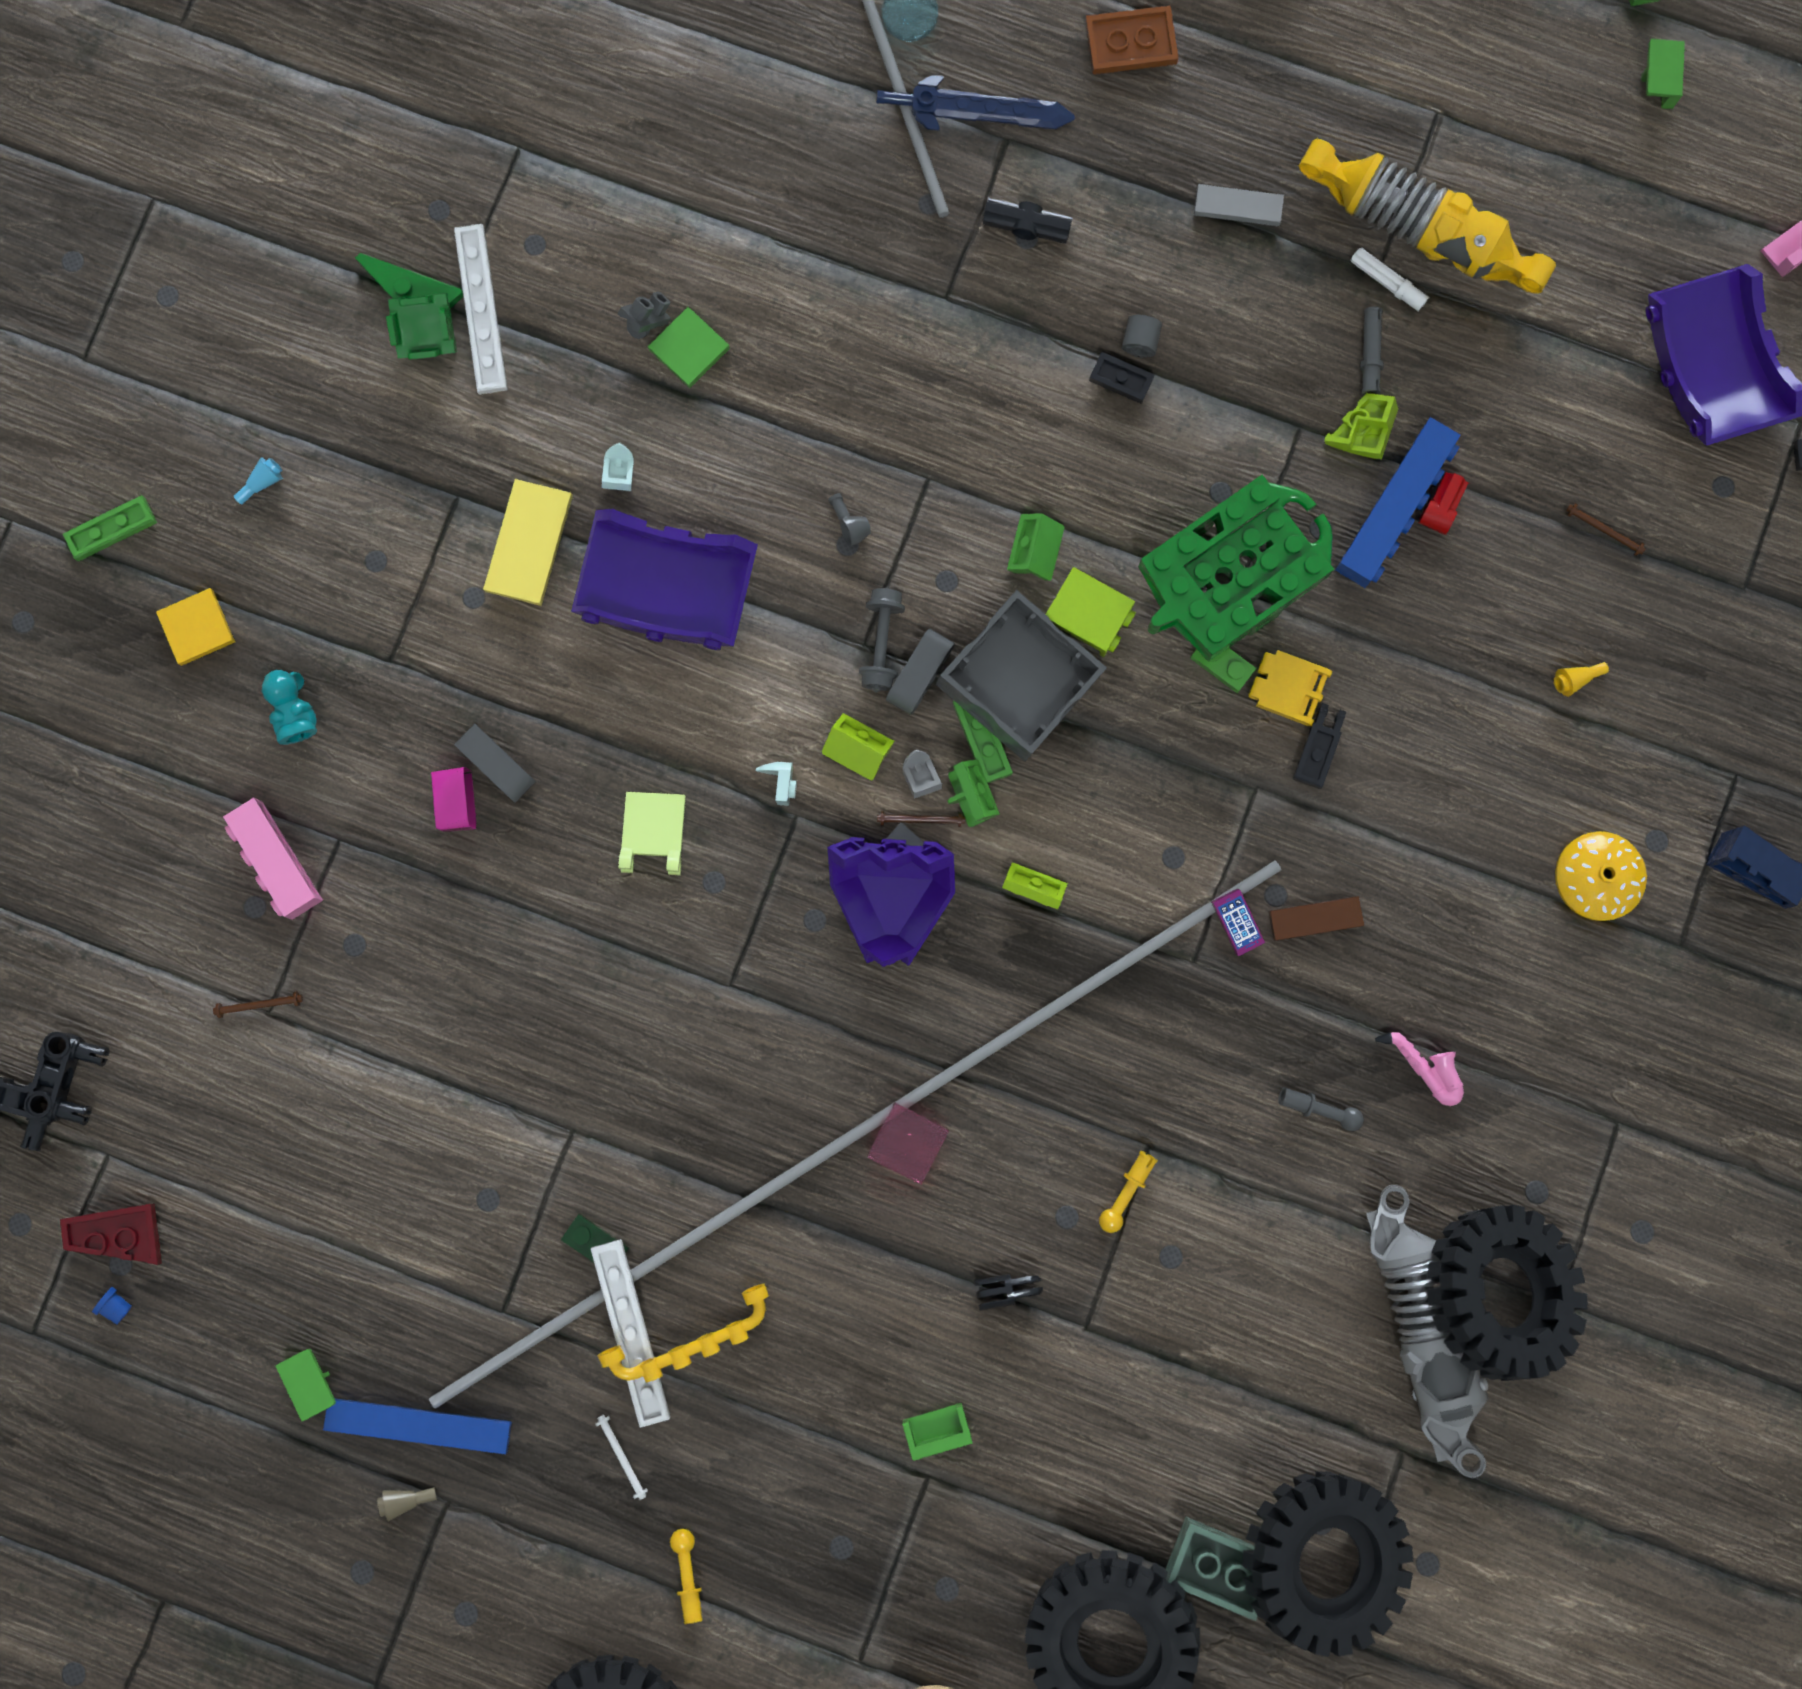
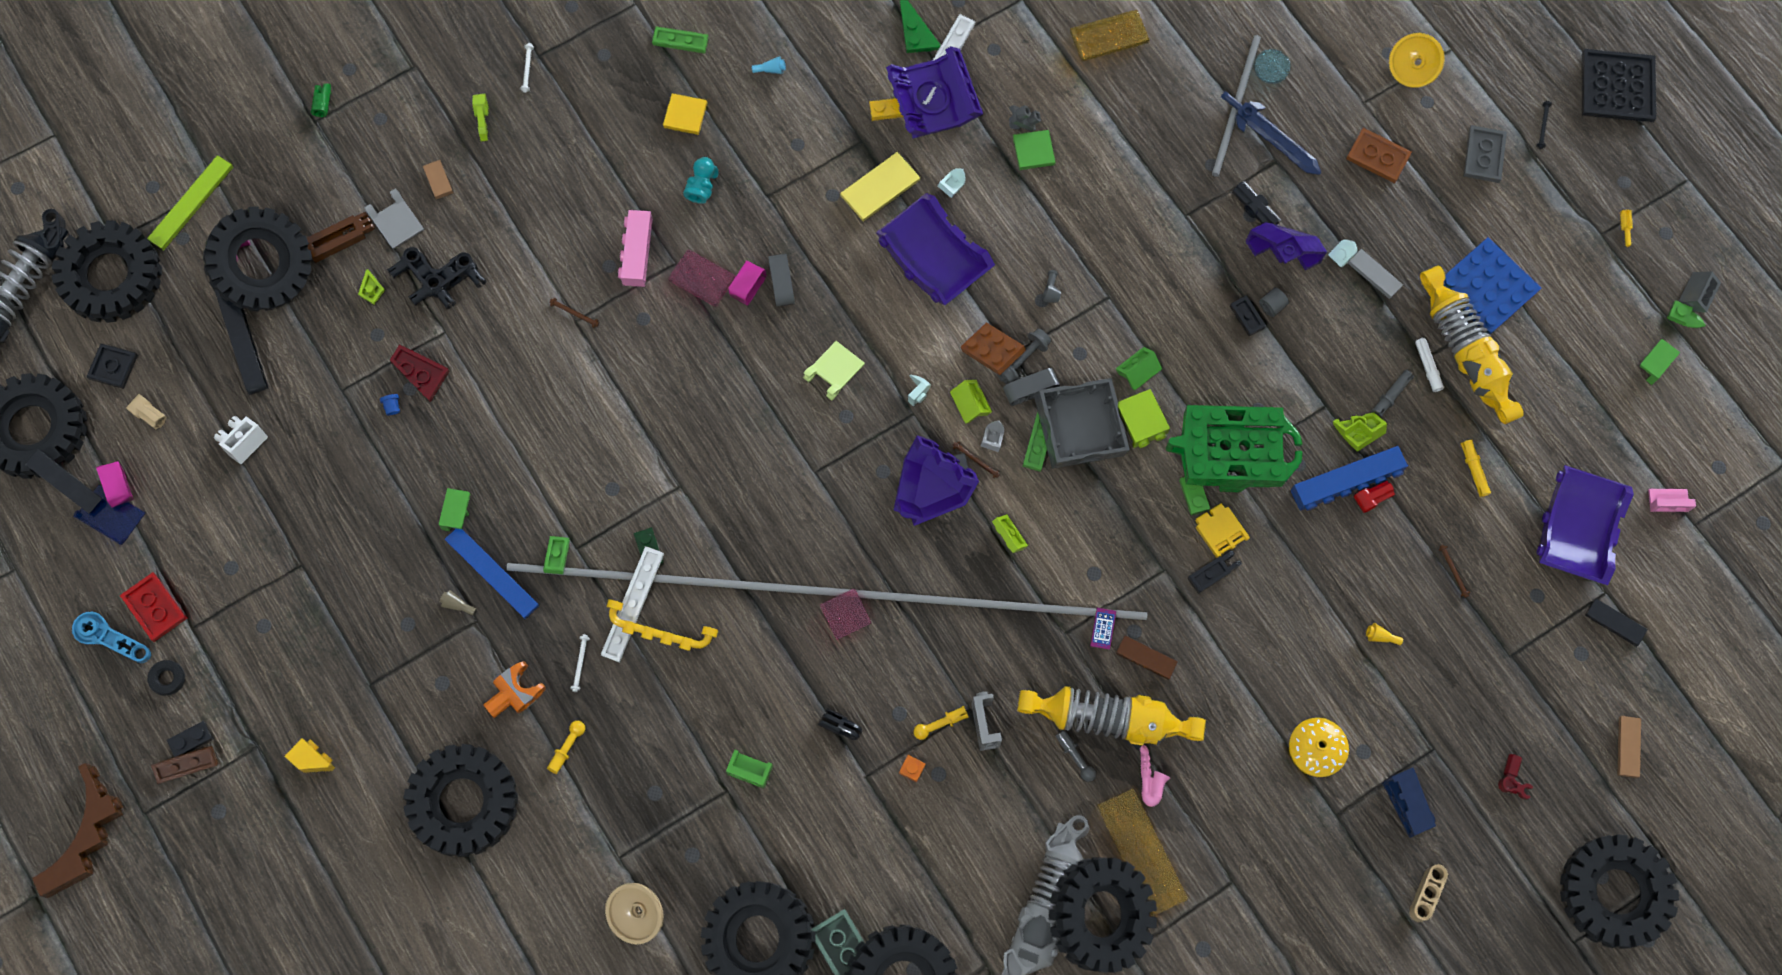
camera: 30 degrees right, 10 degrees down
(388, 835) = (701, 278): none -> clear pink tile
(421, 326) = (906, 47): green panel -> none
(458, 426) = (884, 109): none -> yellow plate
(484, 1342) = (556, 555): none -> bright green plate
(535, 357) = (953, 99): none -> dark purple panel
(565, 1562) = (512, 693): none -> orange connector
(671, 118) = (1109, 35): none -> clear yellow plate
(836, 658) = (993, 348): none -> dark orange plate
(972, 792) = (1012, 464): bright green panel -> none
(1105, 247) = (1286, 244): none -> dark purple panel
(1134, 1276) = (912, 768): none -> orange plate
(1180, 204) = (1343, 252): none -> light aqua plate
(1201, 1178) = (984, 739): none -> light grey panel
(1361, 1015) = (1133, 718): none -> yellow piece
(1390, 113) = (1493, 284): none -> blue plate
(1483, 1164) = (1142, 848): none -> clear yellow plate
(1539, 375) = (1474, 464): none -> yellow pin

